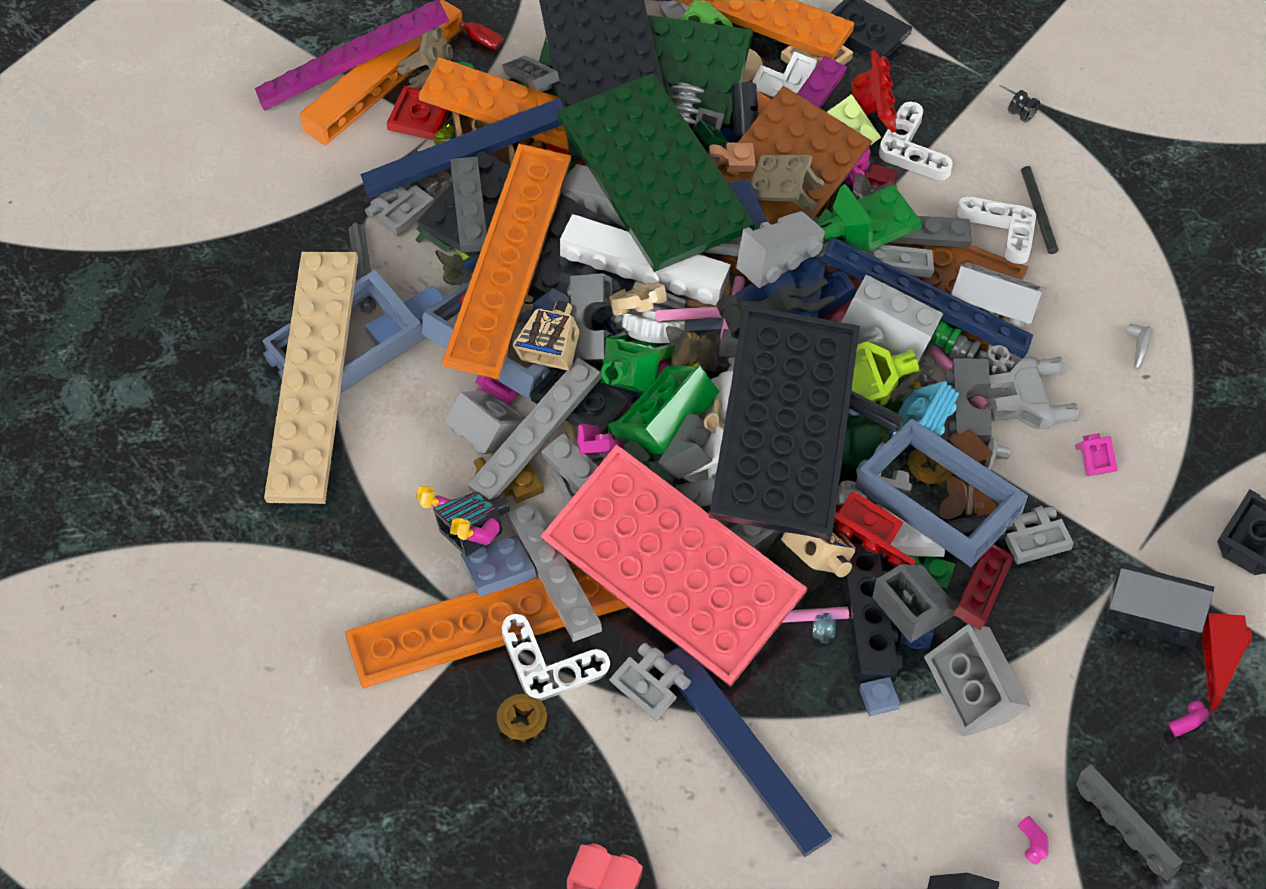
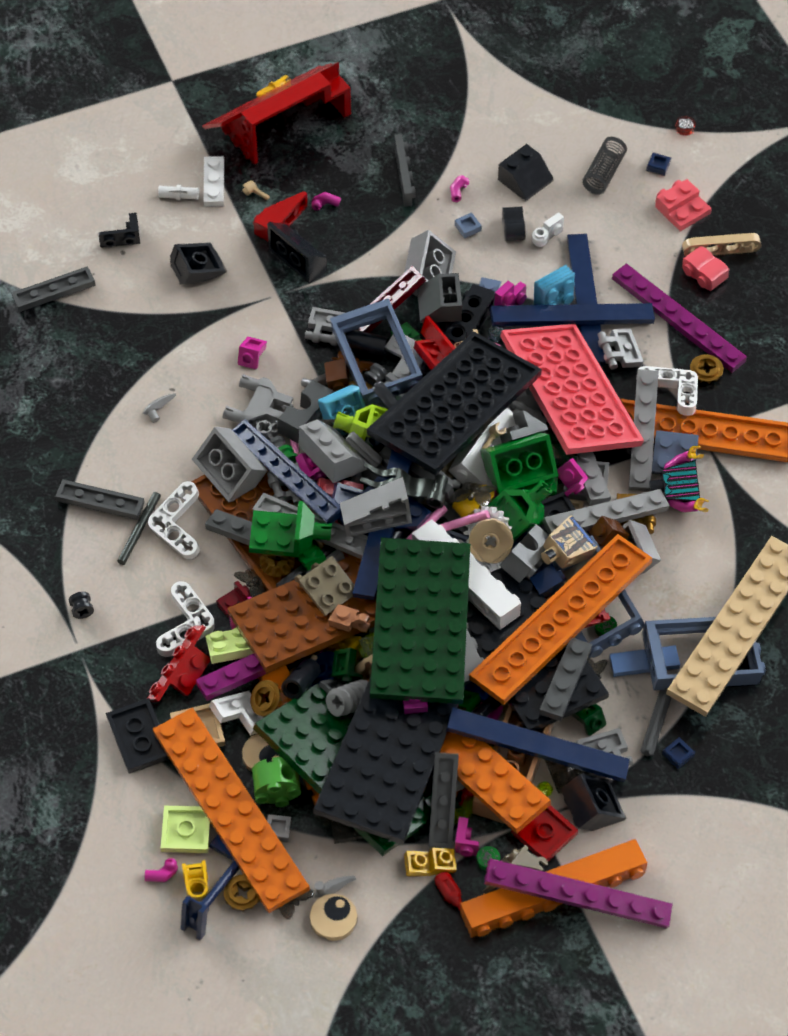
camera: 150 degrees left, 0 degrees up
(322, 241) = (678, 753): none -> dark blue tile
(380, 145) = (592, 802): none -> black slope
(491, 65) = (463, 842): none -> dark pink bracket
(517, 402) = (606, 529): none -> reddish brown brick
(522, 44) = (430, 863): none -> yellow slope
(603, 784) = (679, 317): none -> magenta plate
(739, 695) = (572, 314): none -> dark blue tile
(766, 86) = (258, 700): none -> pearl gold gear
(784, 711) = (555, 287): none -> medium azure brick
(836, 668) = (510, 294): none -> dark pink plate
(857, 833) = (551, 228): none -> white plate
(916, 813) = (513, 223): none -> black axle
(927, 491) = (376, 374): none -> dark grey wheel
(975, 778) = (468, 225): none -> sand blue plate
(1103, 212) = (100, 499): none -> dark grey plate

